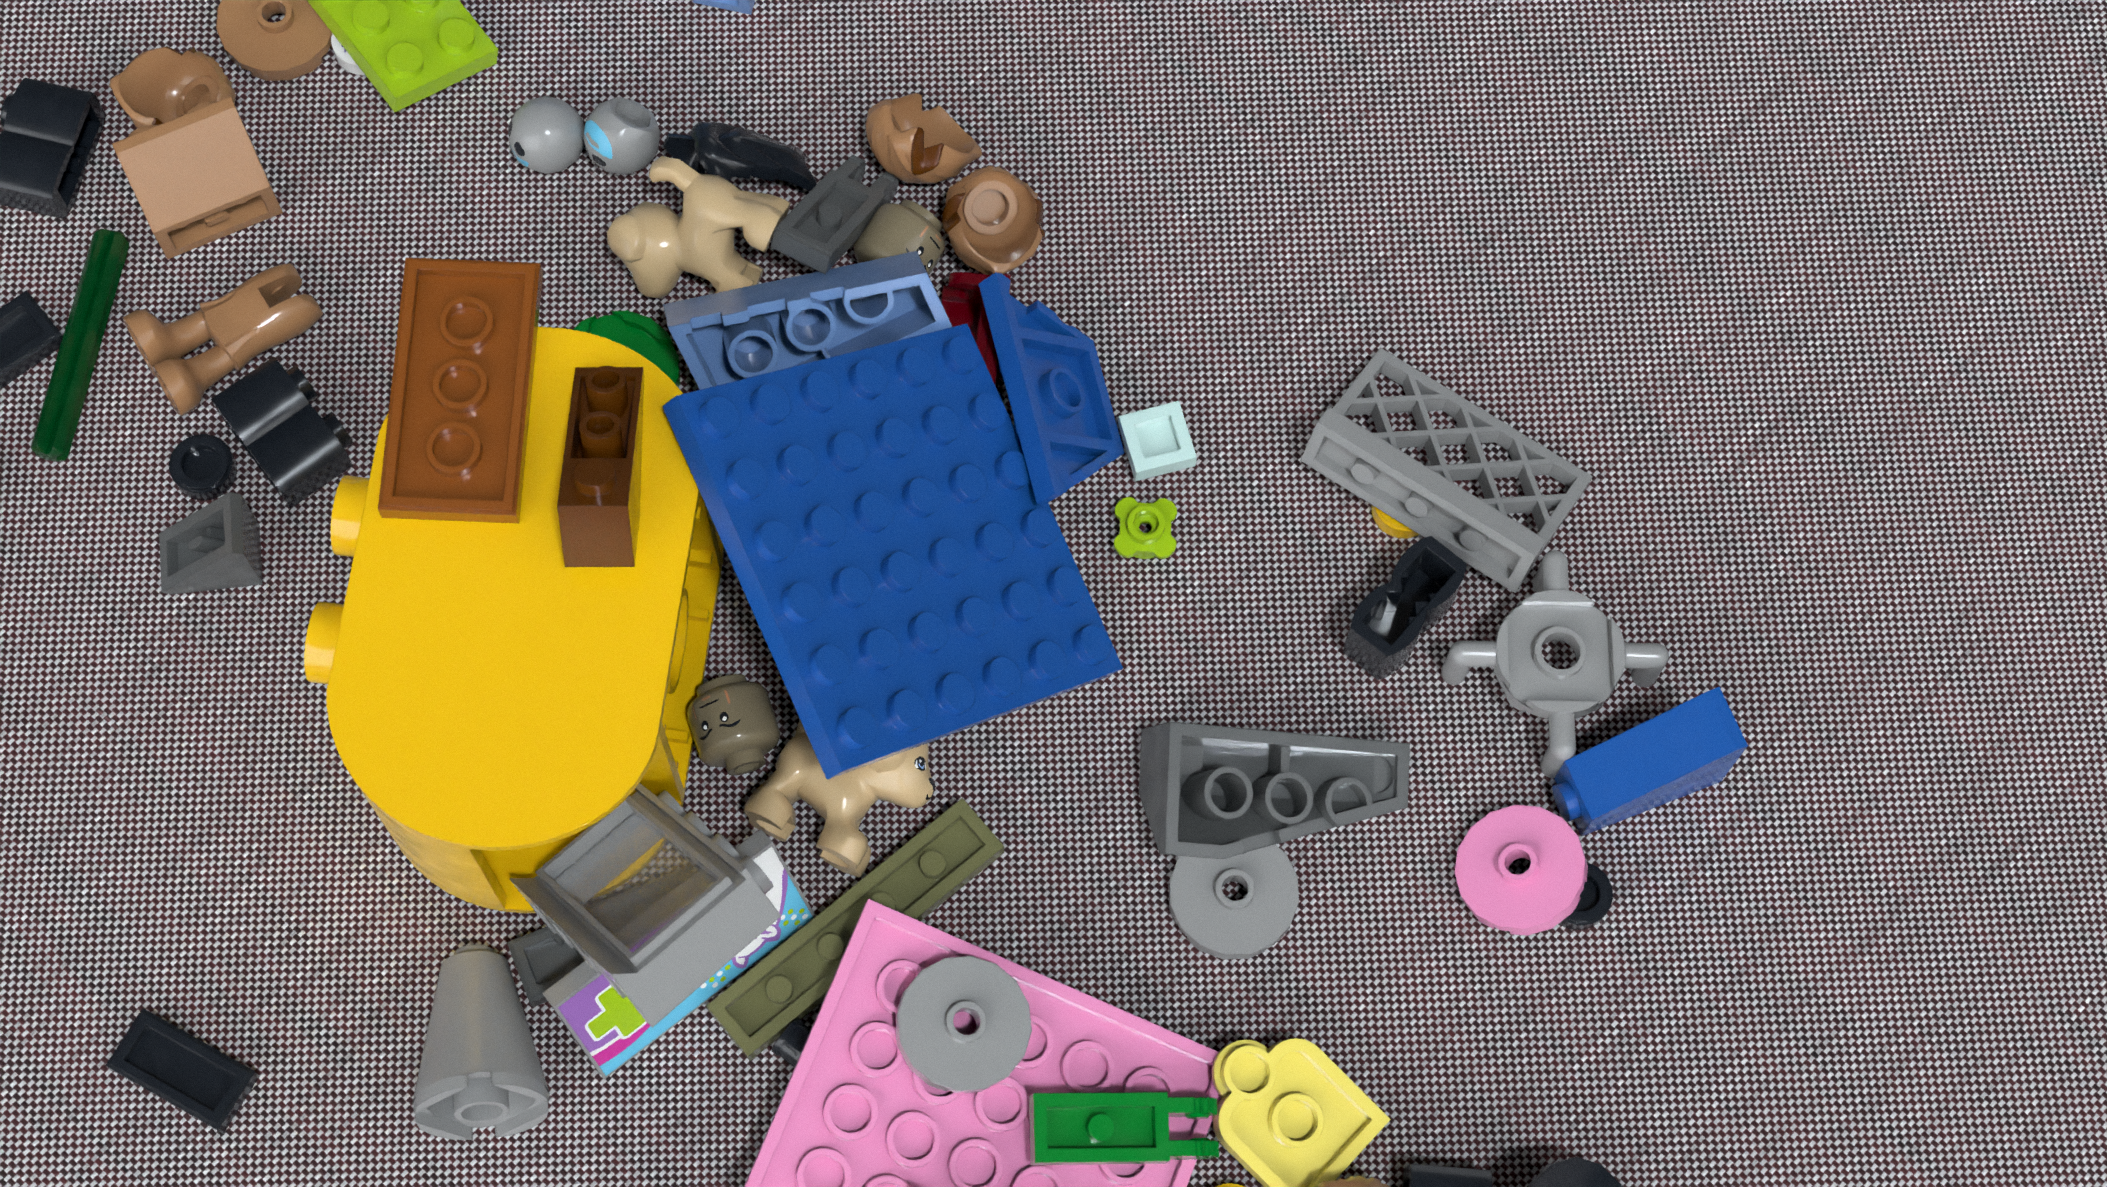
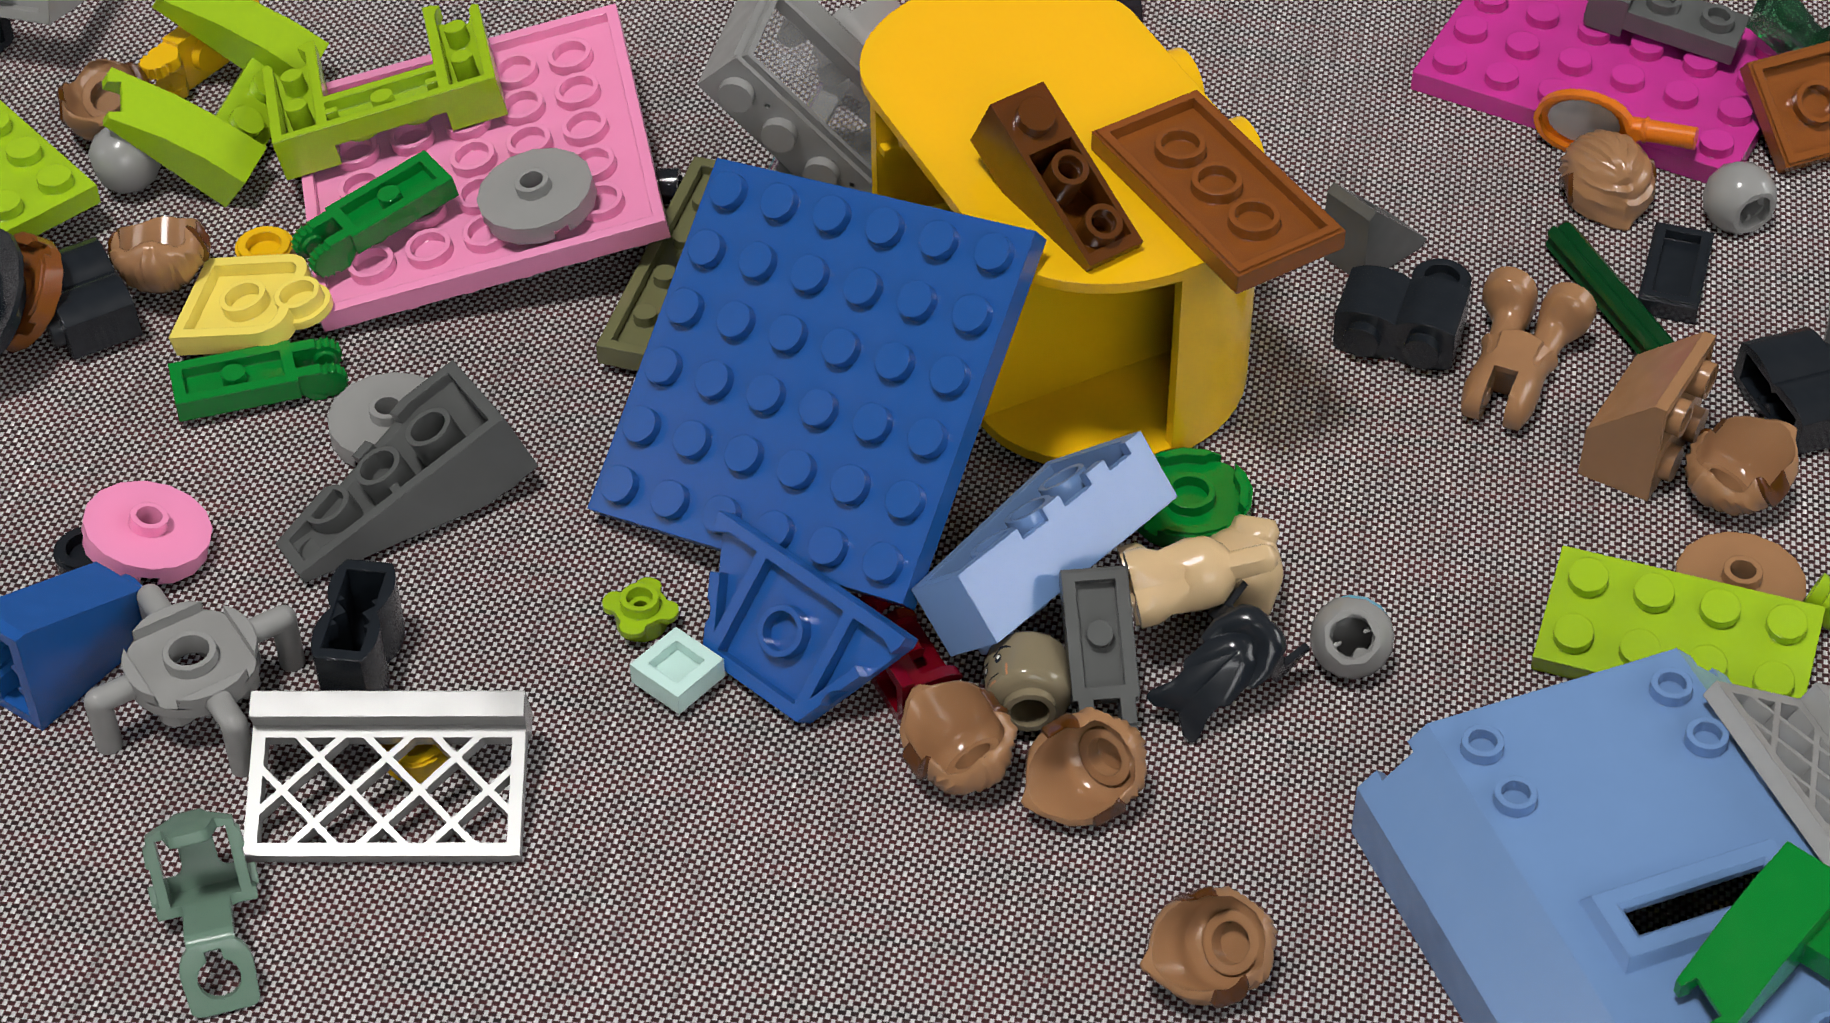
camera: 150 degrees right, 25 degrees down
(546, 134) = (1419, 606): light grey piece -> none
(1336, 1020) = (257, 377): none -> green hinge
(1643, 445) = (205, 900): none -> sand green piece

